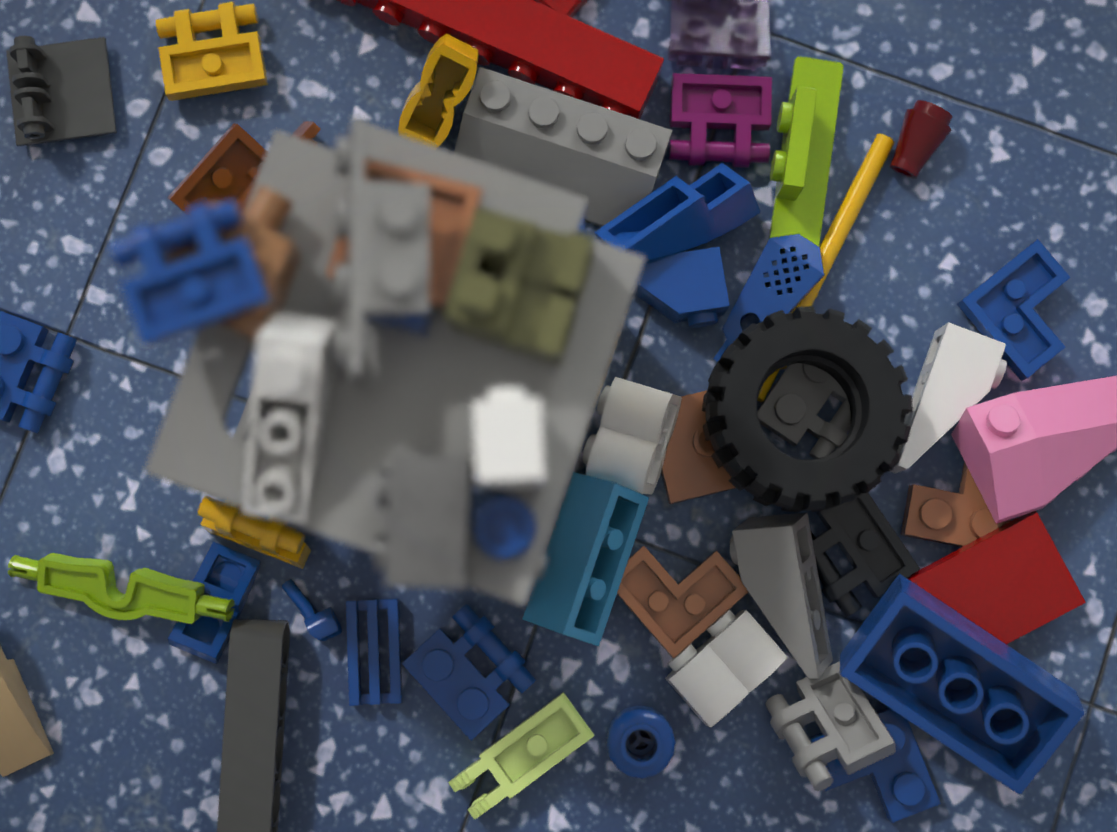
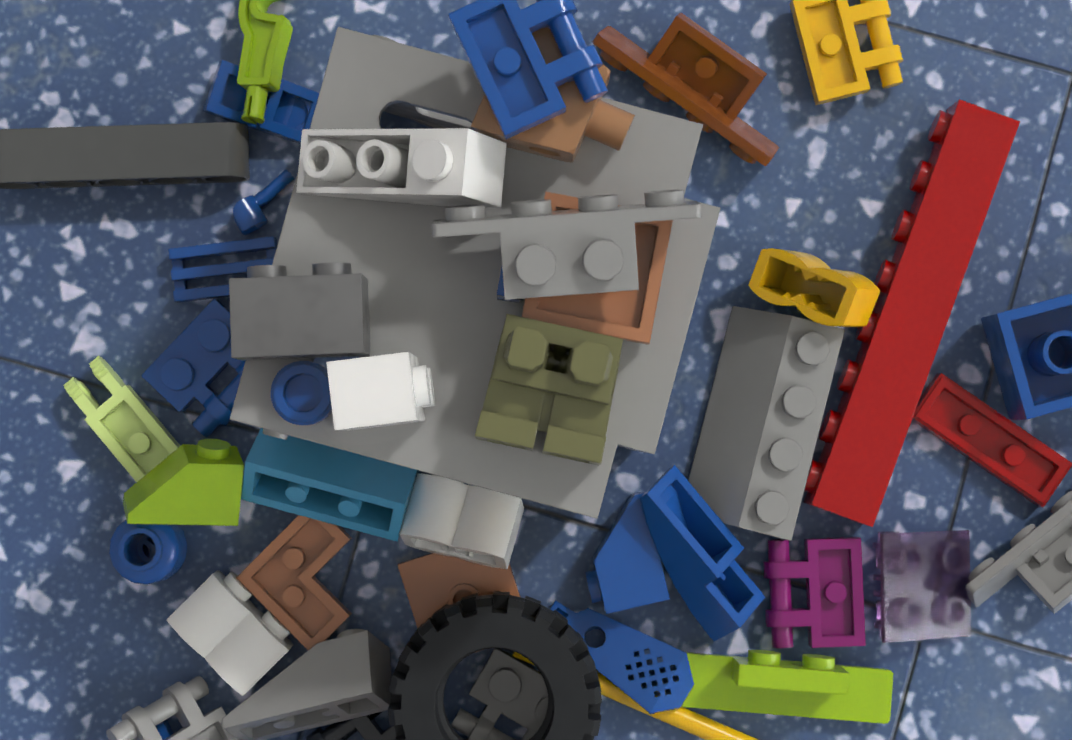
camera: 95 degrees right, 5 degrees up
(584, 694) = (190, 487): none -> lime slope

